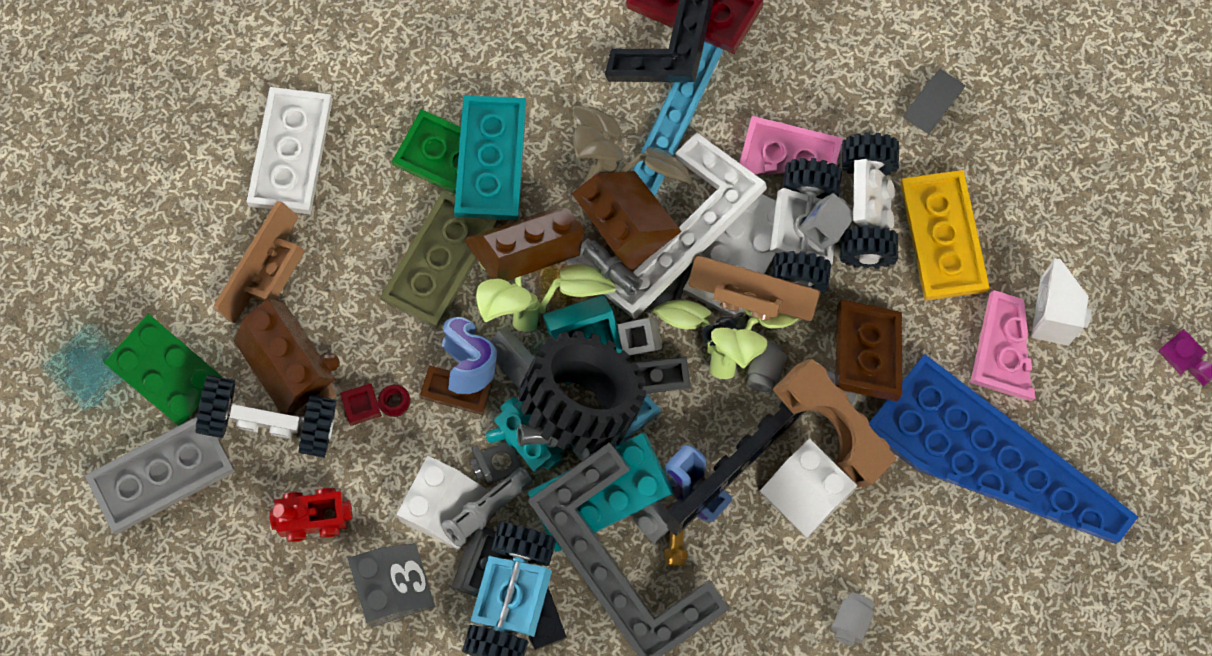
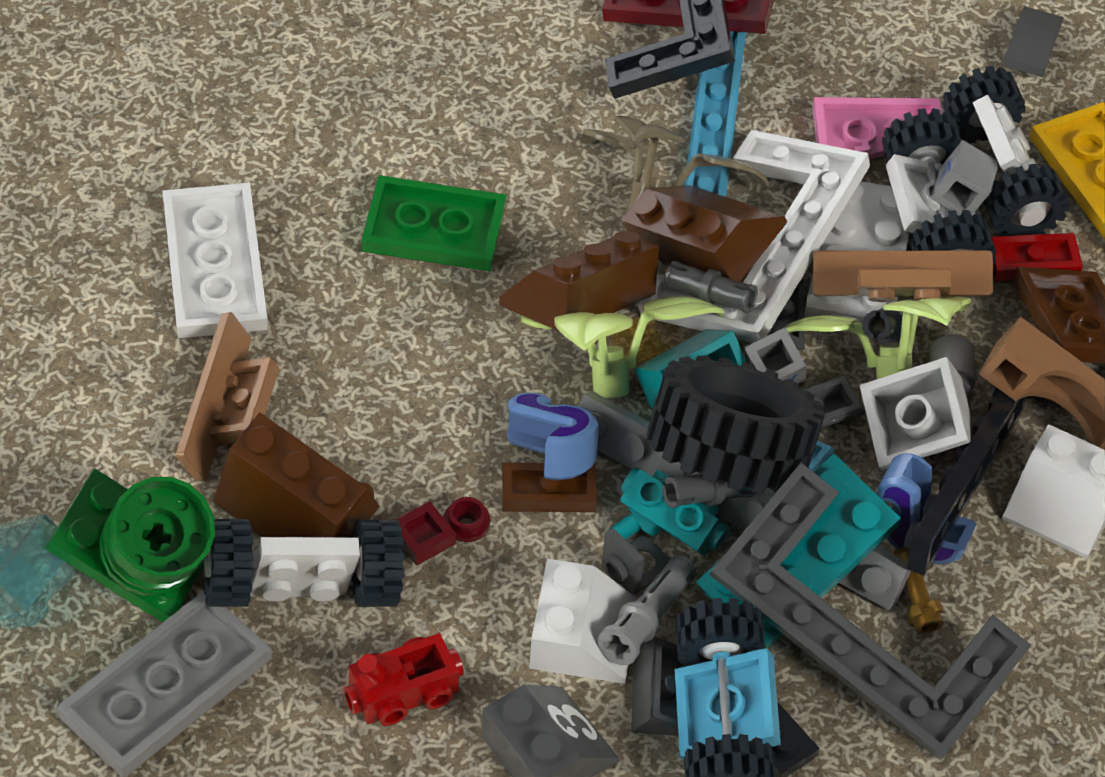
camera: 20 degrees left, 20 degrees down
(149, 389) = (181, 528): none -> green wheel
(435, 264) = (464, 344): olive plate -> none
(490, 157) = (496, 203): teal plate -> none
(721, 408) = (917, 411): none -> white slope
(862, 287) = (1035, 251): none -> red plate

